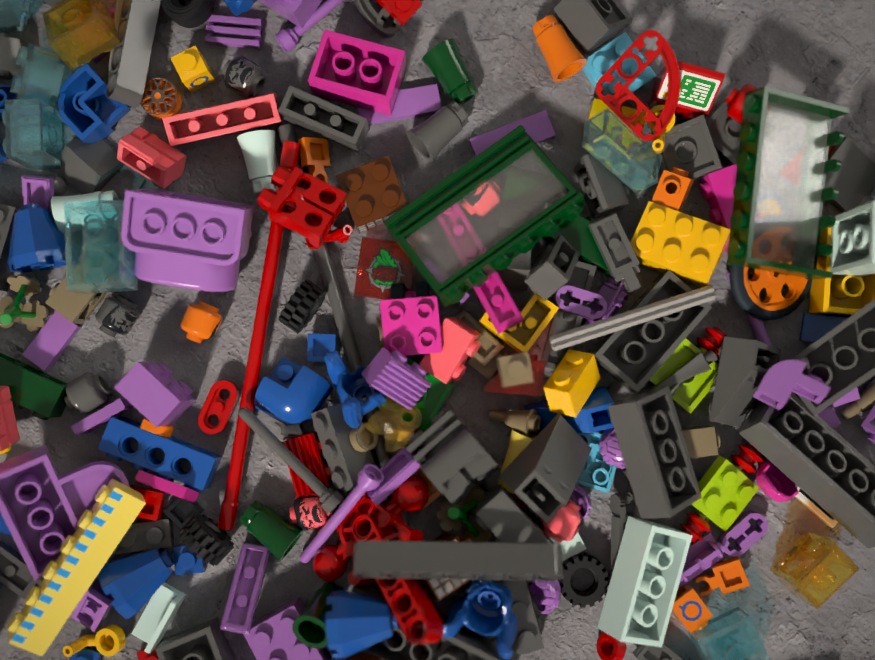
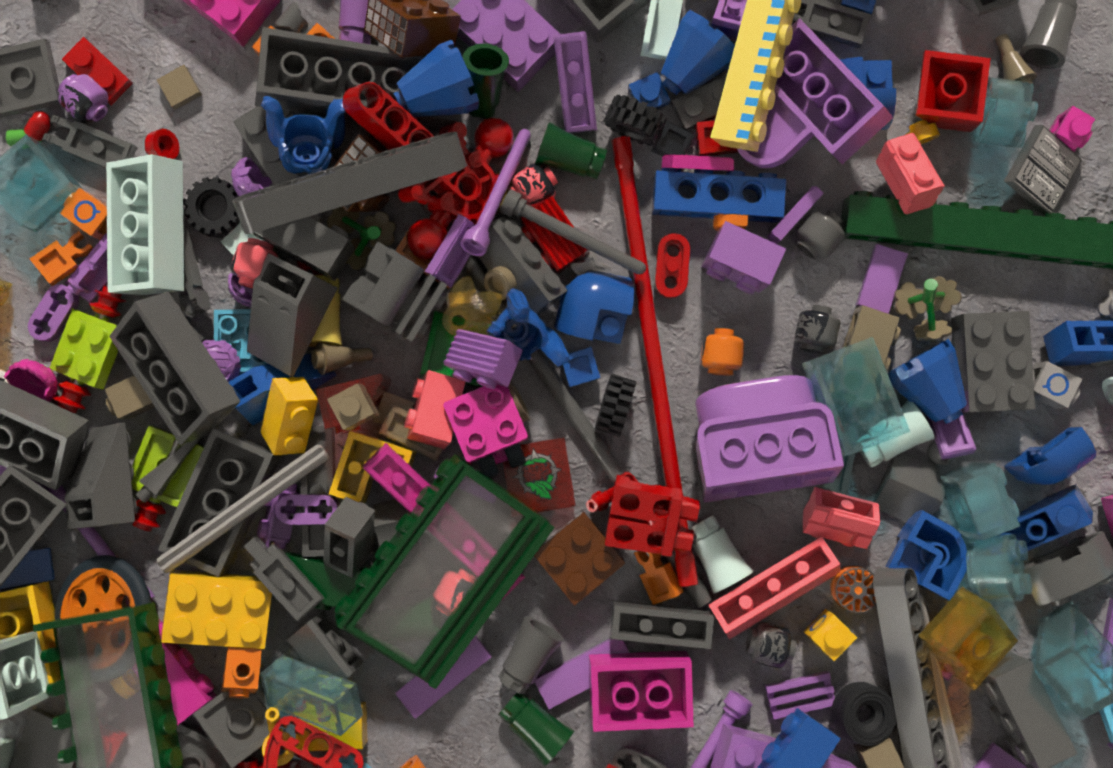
camera: 165 degrees right, 0 degrees up
(787, 378) = (51, 496): medium lavender brick -> none

